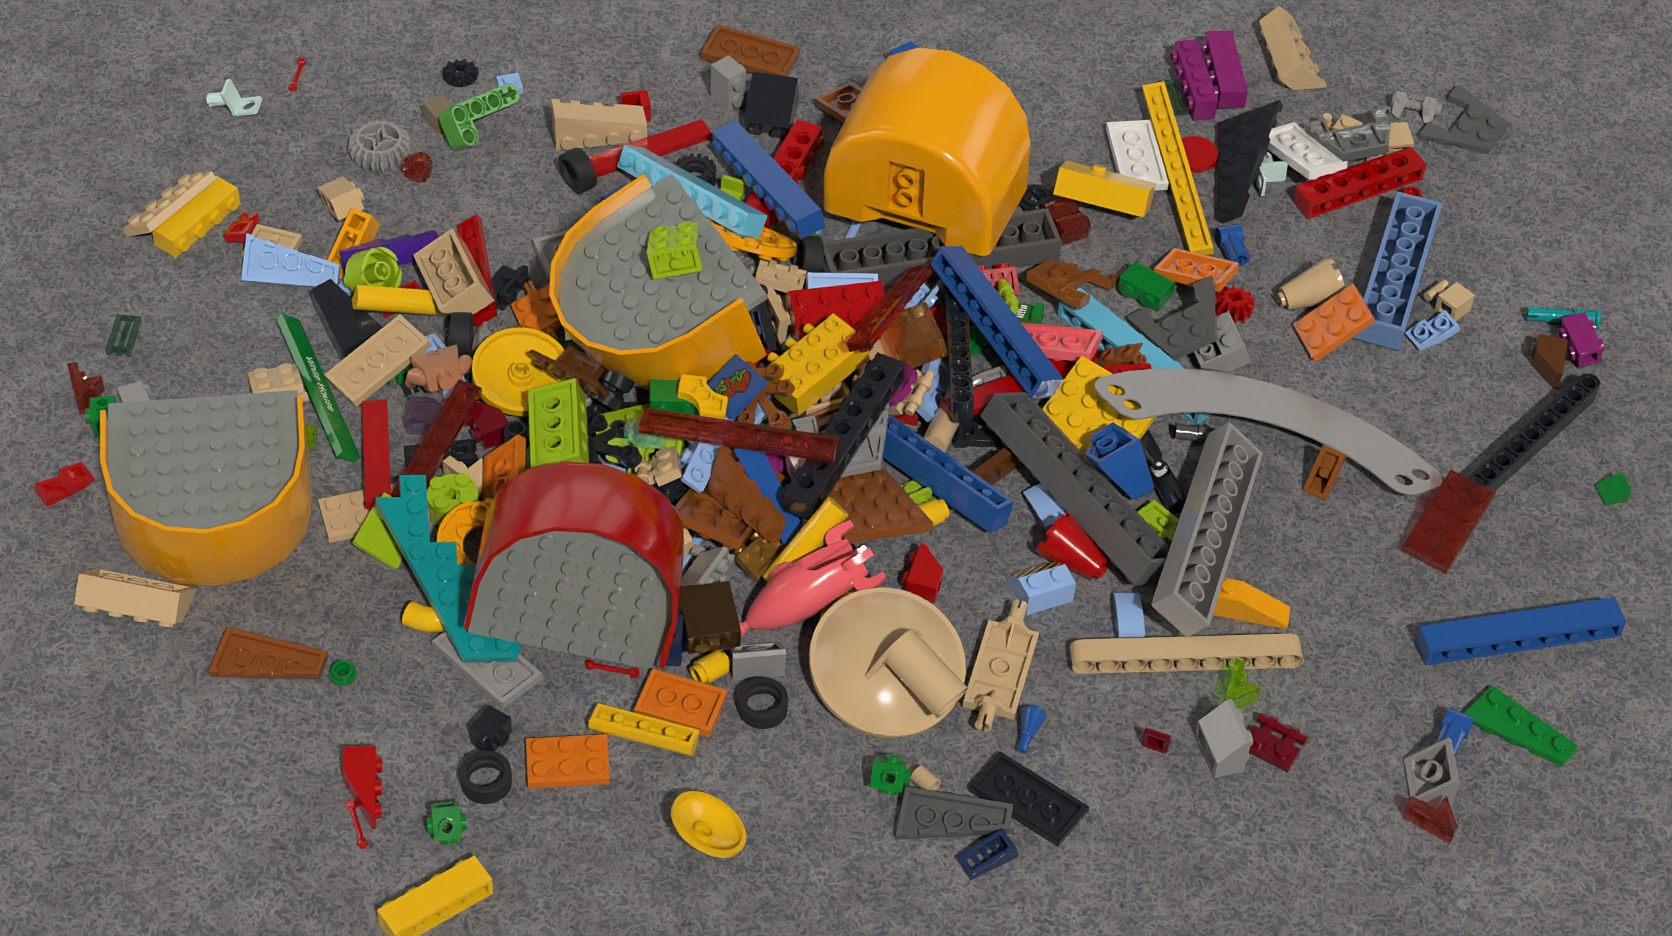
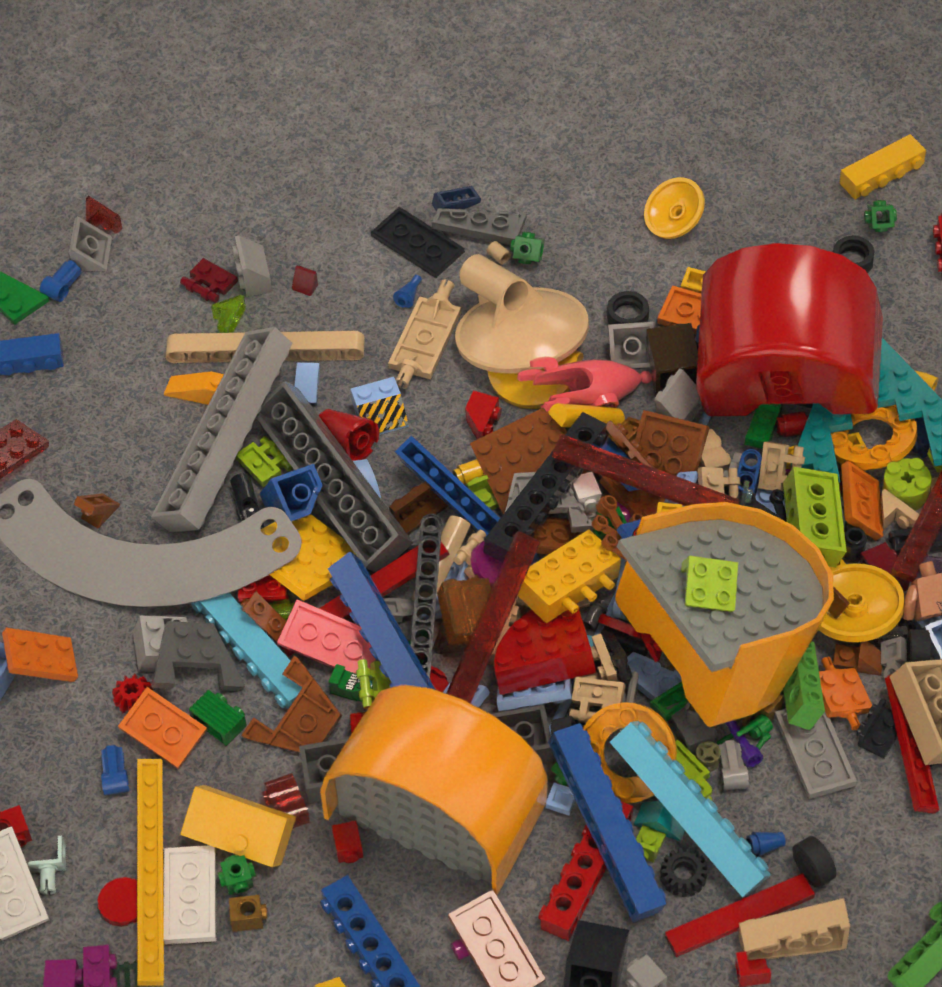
camera: 170 degrees left, 5 degrees up
(1038, 192) = (319, 830): black gear -> none
(1082, 140) = (240, 905): none -> pearl gold brick
(1099, 155) = (238, 882): none -> green brick
(1240, 151) = (70, 889): black wing -> none
(1312, 286) = (47, 705): tan cone -> none

